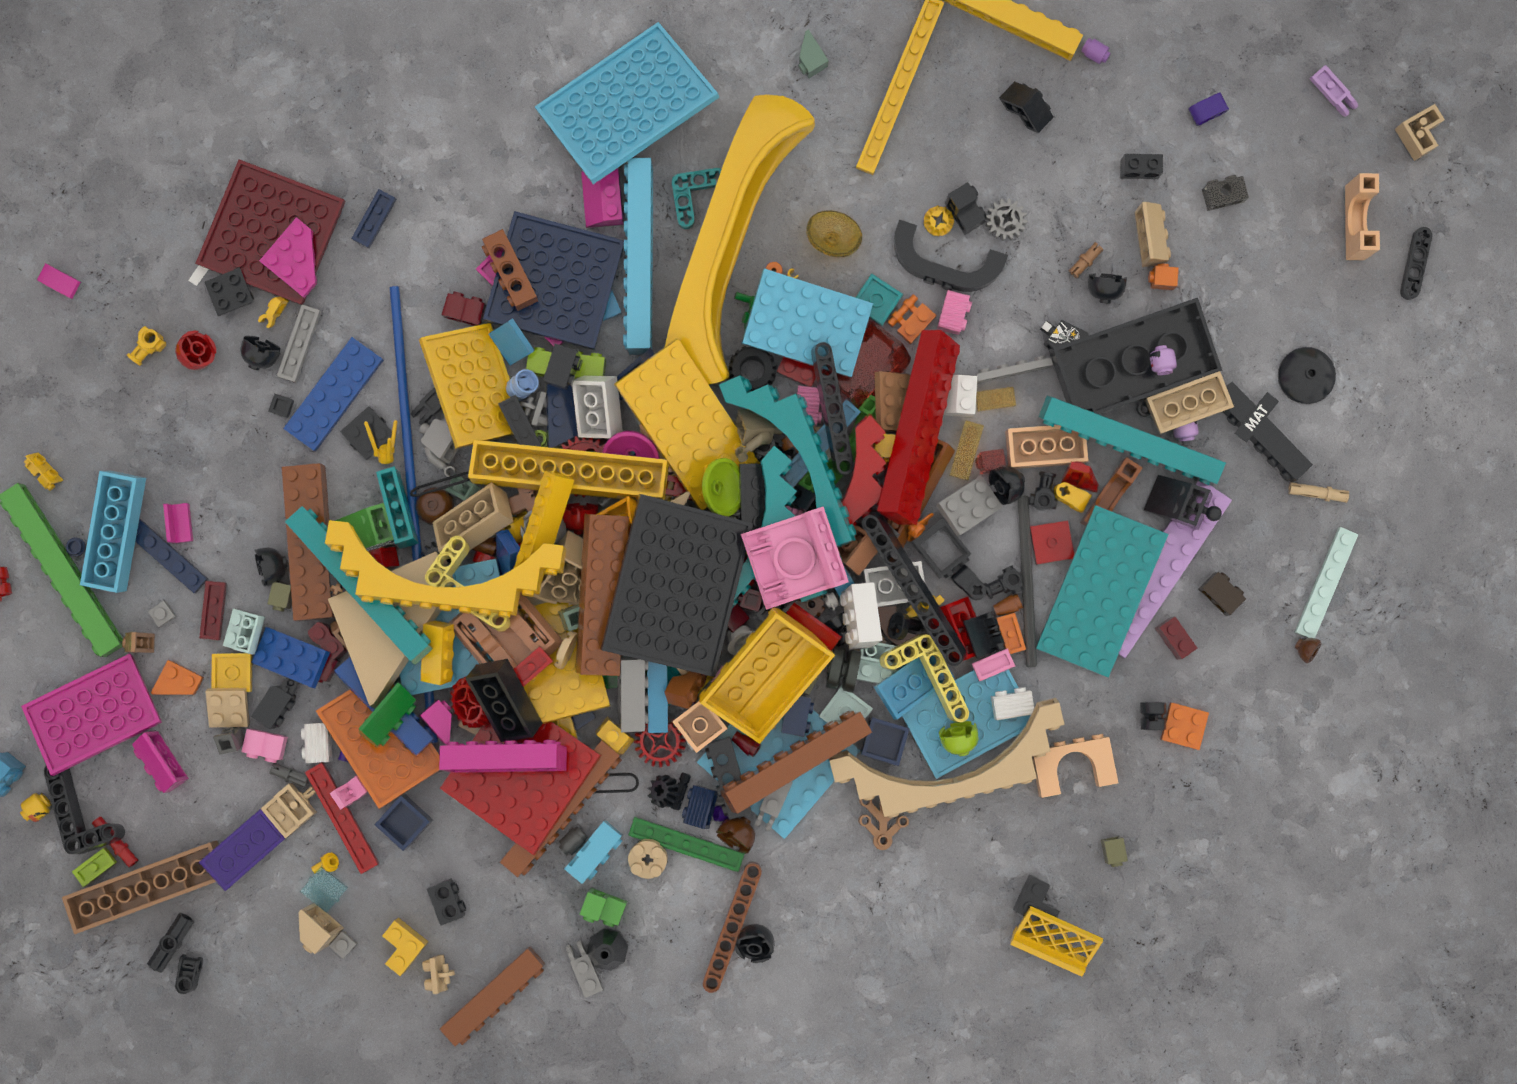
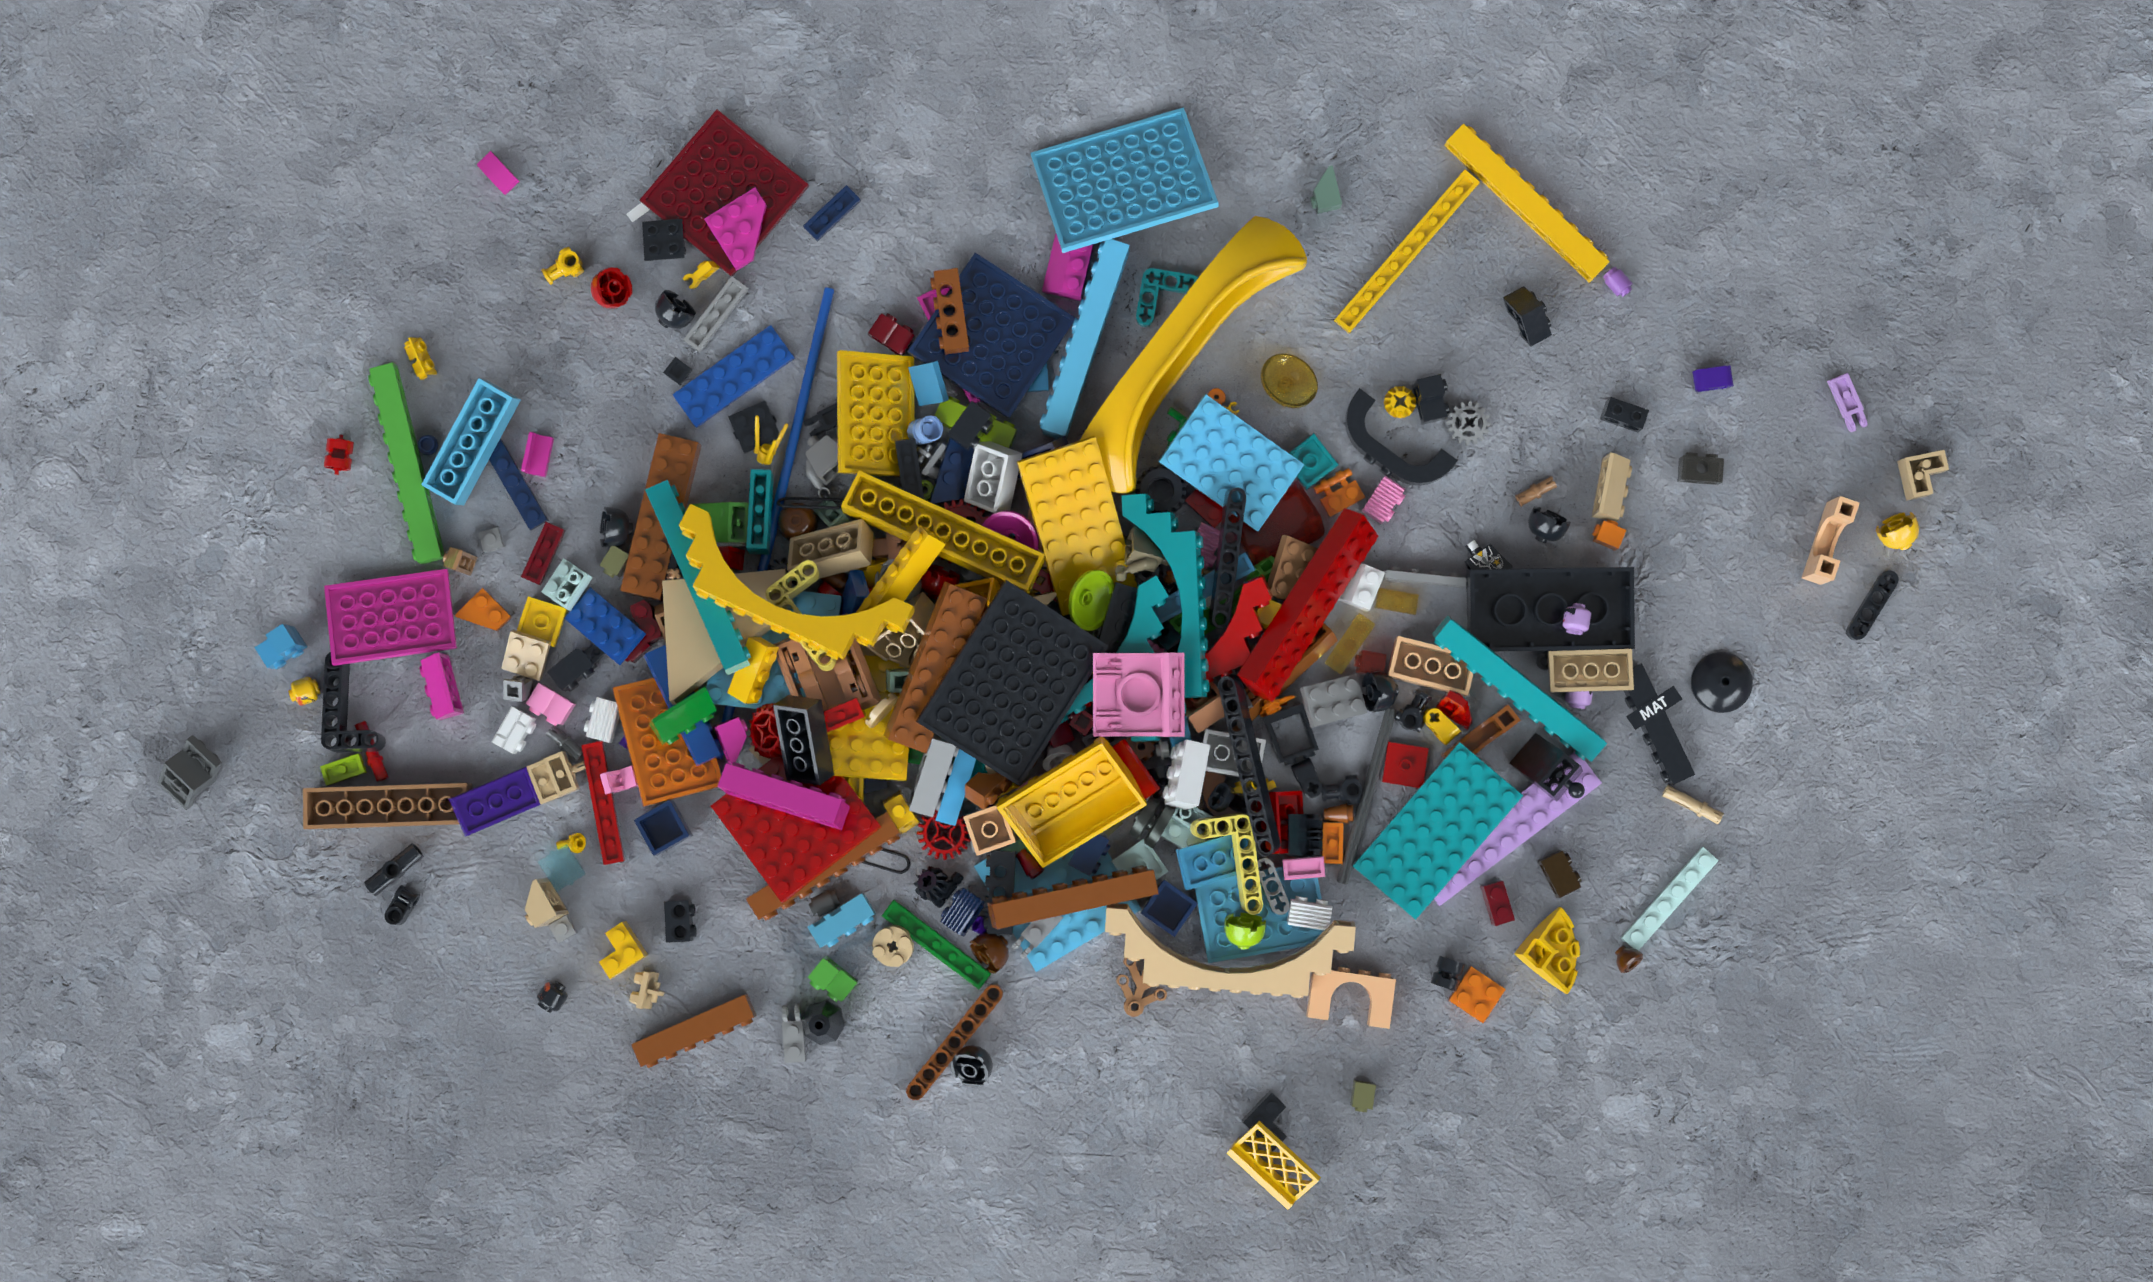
camera: 25 degrees right, 0 degrees up
(239, 779) = (514, 730): none -> white brick
(353, 1009) = (552, 996): none -> black head
(976, 704) = (1283, 898): none -> light grey beam
(1238, 664) = (1552, 950): none -> yellow brick
(1418, 189) = (1899, 531): none -> yellow cylinder

